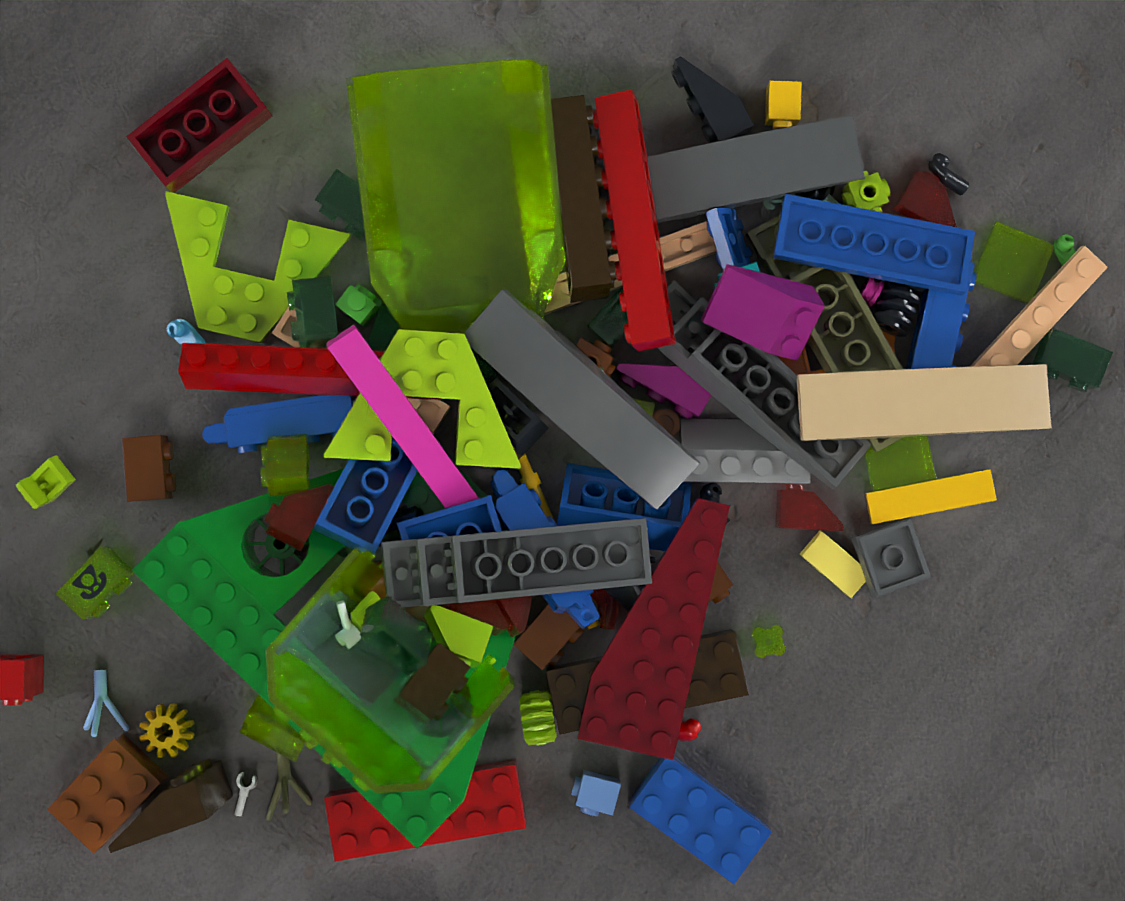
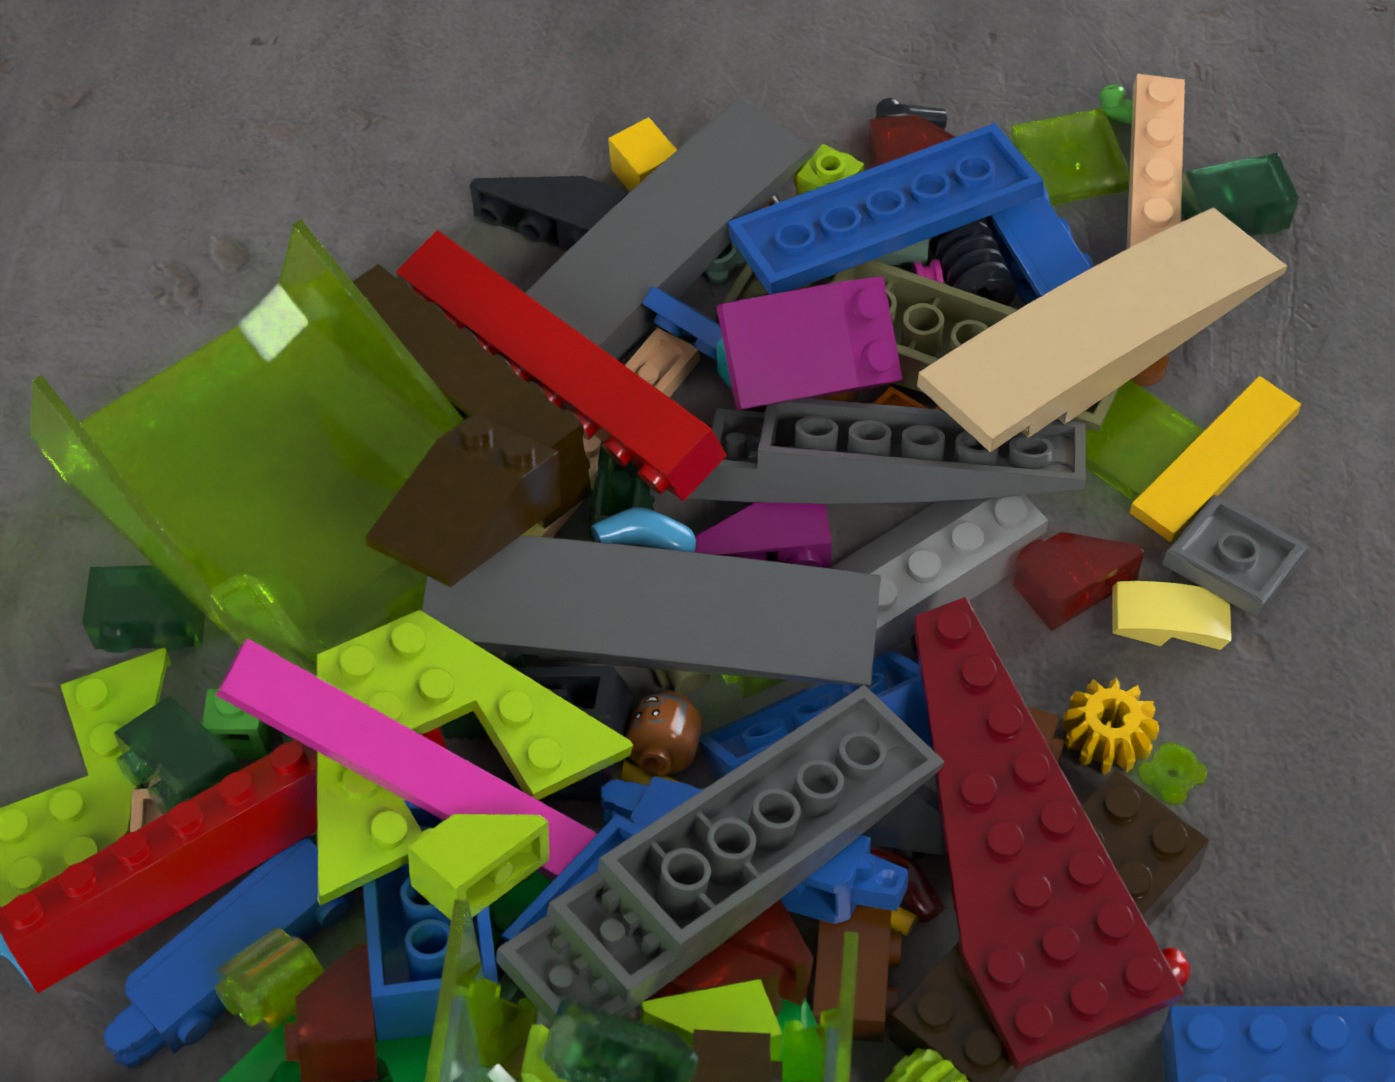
camera: 30 degrees left, 30 degrees down
(402, 486) = (476, 858): none -> lime slope
(523, 292) = (468, 500): none -> dark brown slope
(548, 456) = (664, 733): none -> dark orange head
(611, 352) = (644, 528): none -> dark azure arm
(762, 610) = (1114, 708): none -> yellow gear

